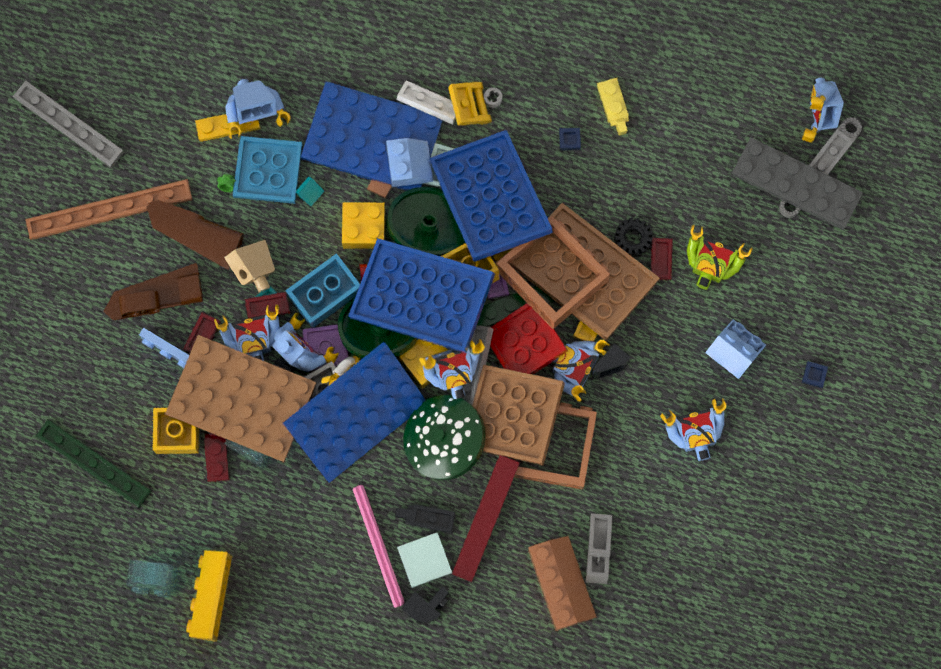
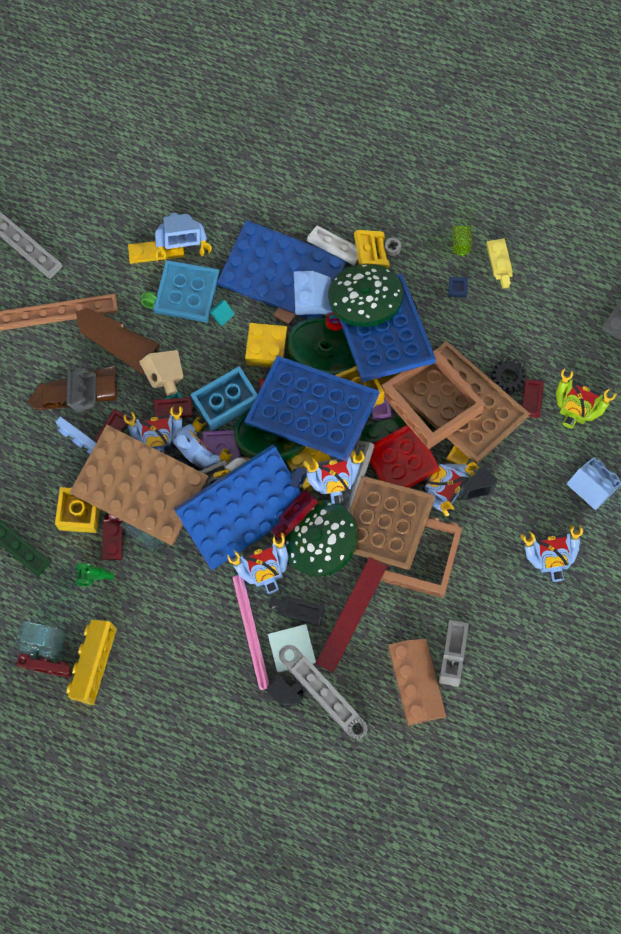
camera: 10 degrees right, 5 degrees down
(157, 604) = (44, 665): none -> dark red hinge
(163, 295) = (81, 389): none -> dark grey hinge
(194, 500) = (88, 573): none -> green piece
(385, 472) = (263, 565): none -> torso
(413, 414) = (294, 514): none -> dark red hinge
(414, 373) = (298, 477): none -> dark blue plate
(435, 192) = (333, 322): none -> red tile
(463, 604) = (323, 691): none -> light grey plate
(468, 159) = (365, 295): none -> dark green dish
(569, 84) = (461, 240): none -> clear neon green brick

